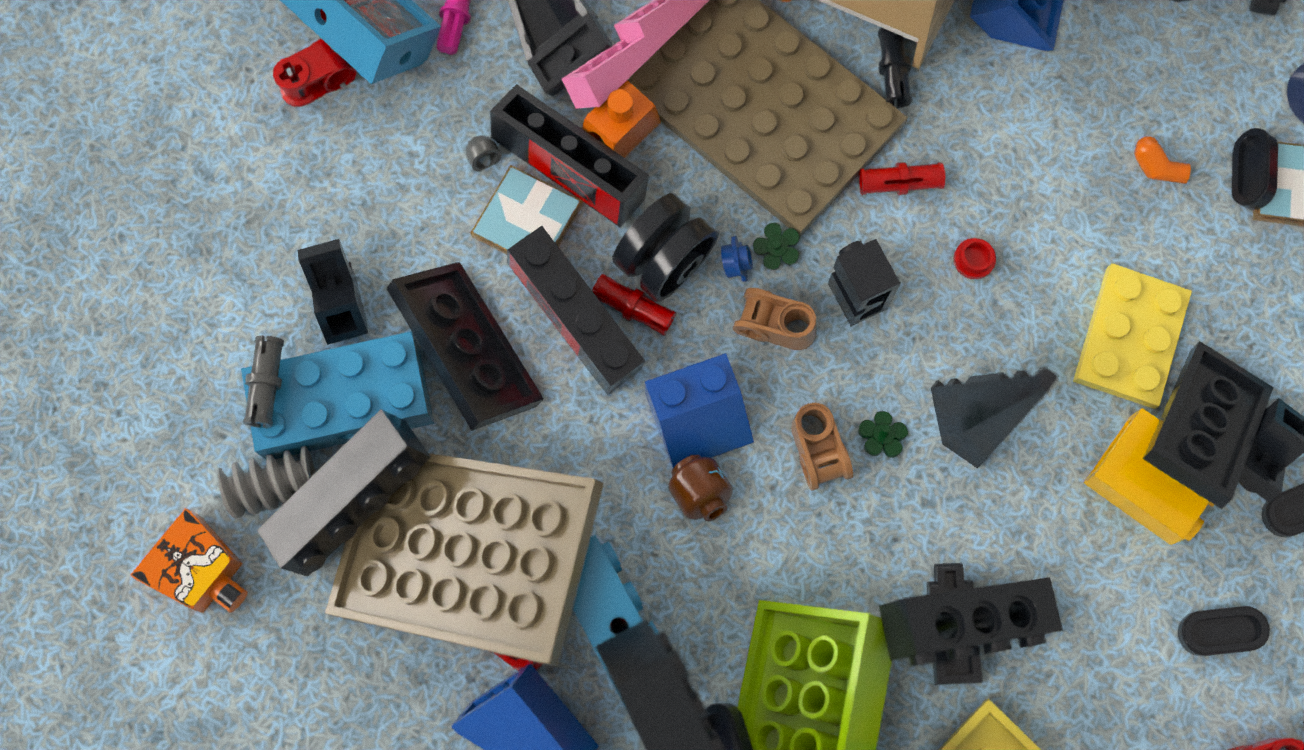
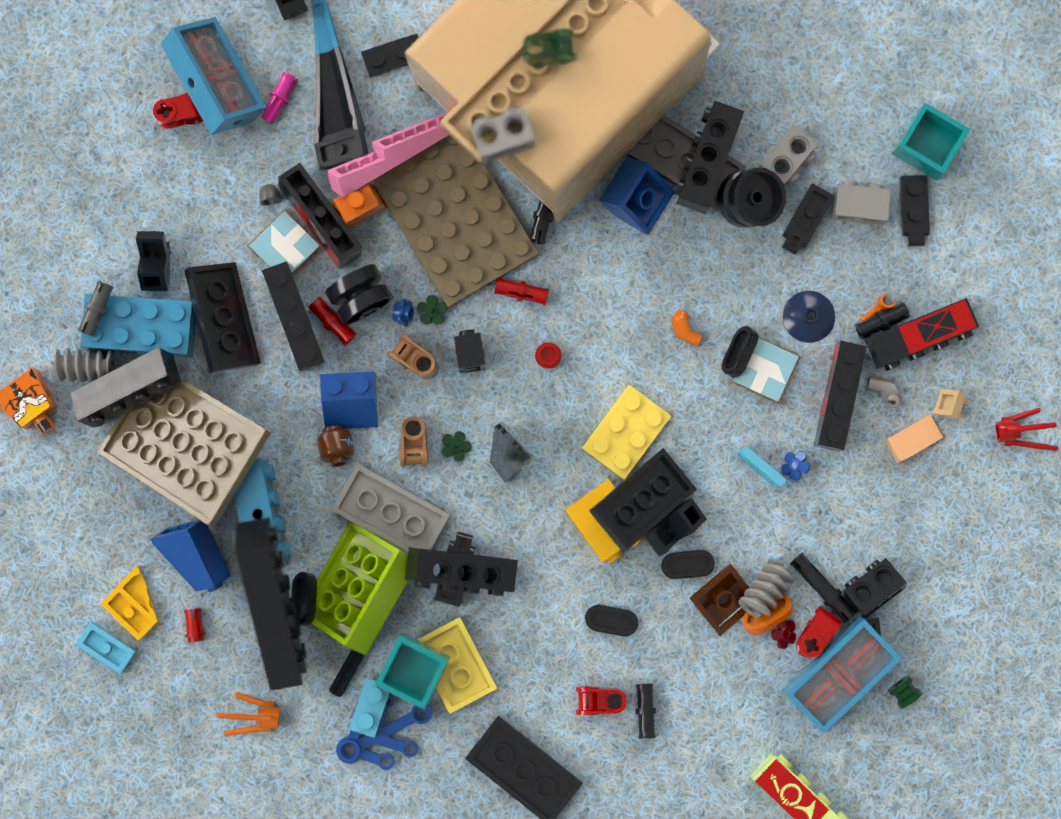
camera: 10 degrees right, 10 degrees up
(817, 562) = (389, 511): none -> light grey plate

